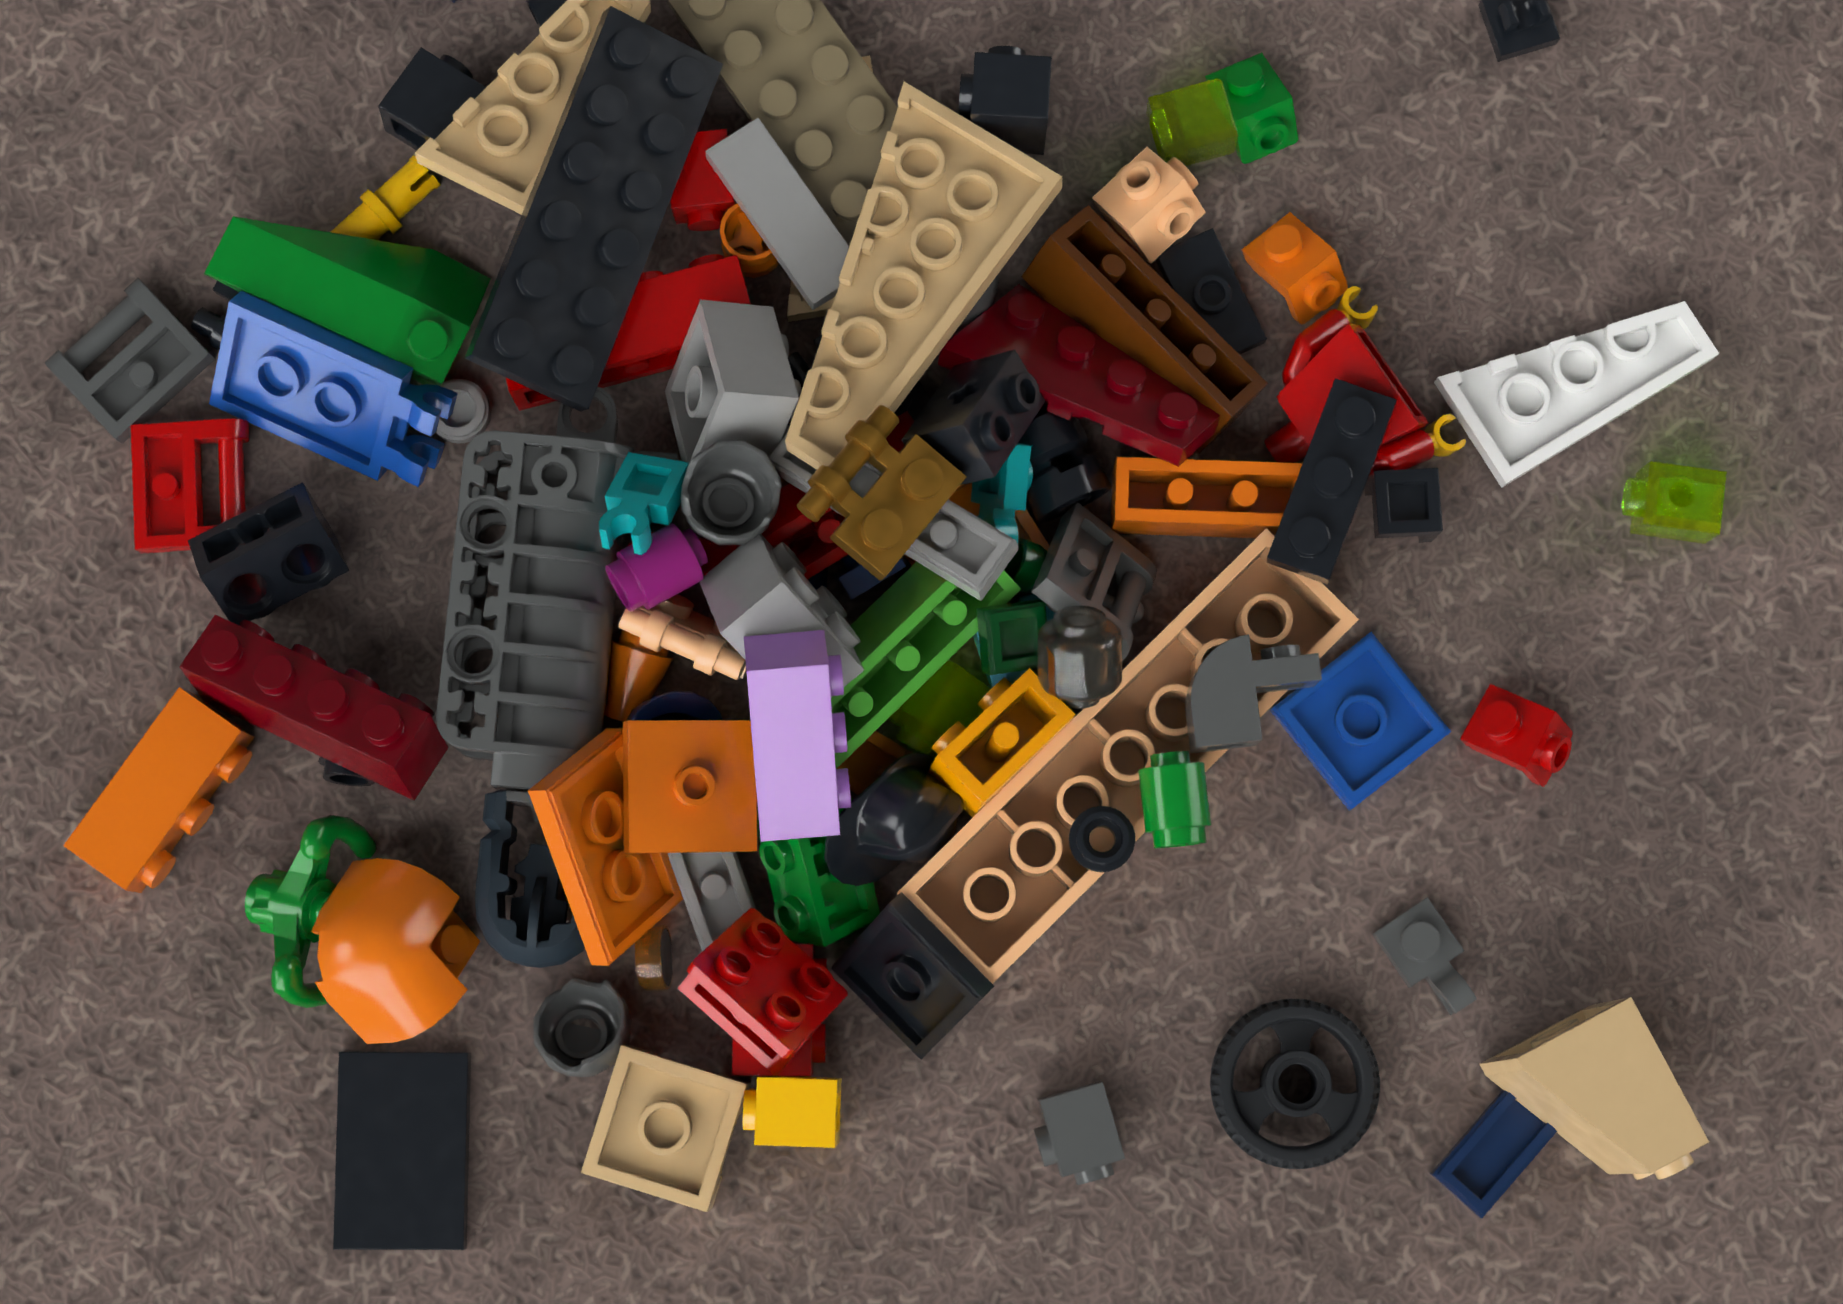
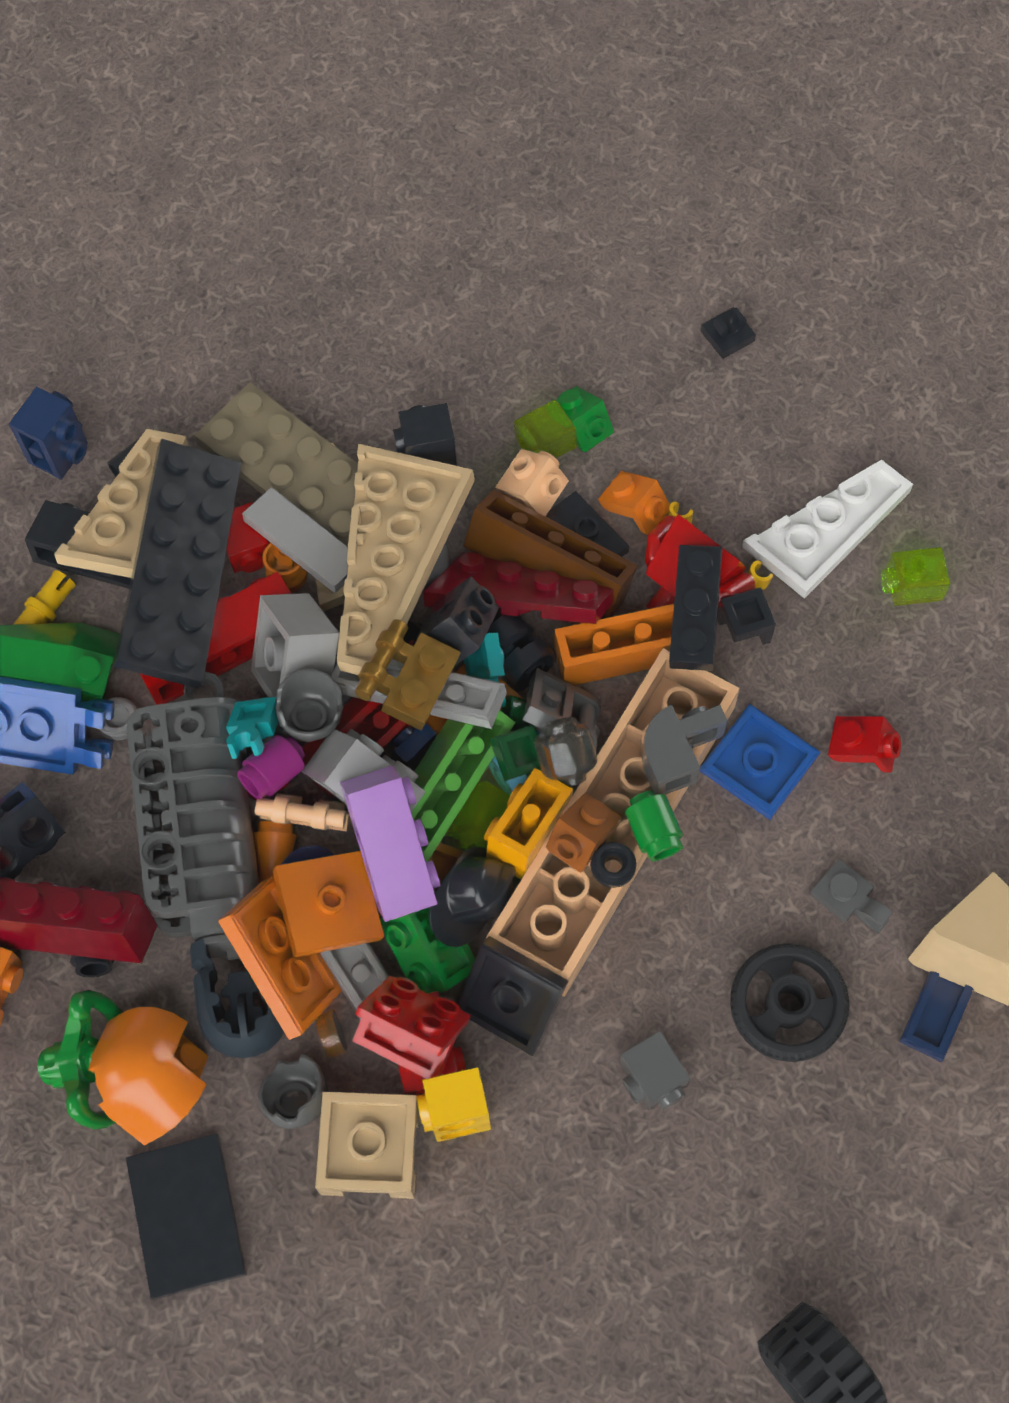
camera: 15 degrees left, 15 degrees down
(1072, 779) = (582, 831): none -> dark orange bracket

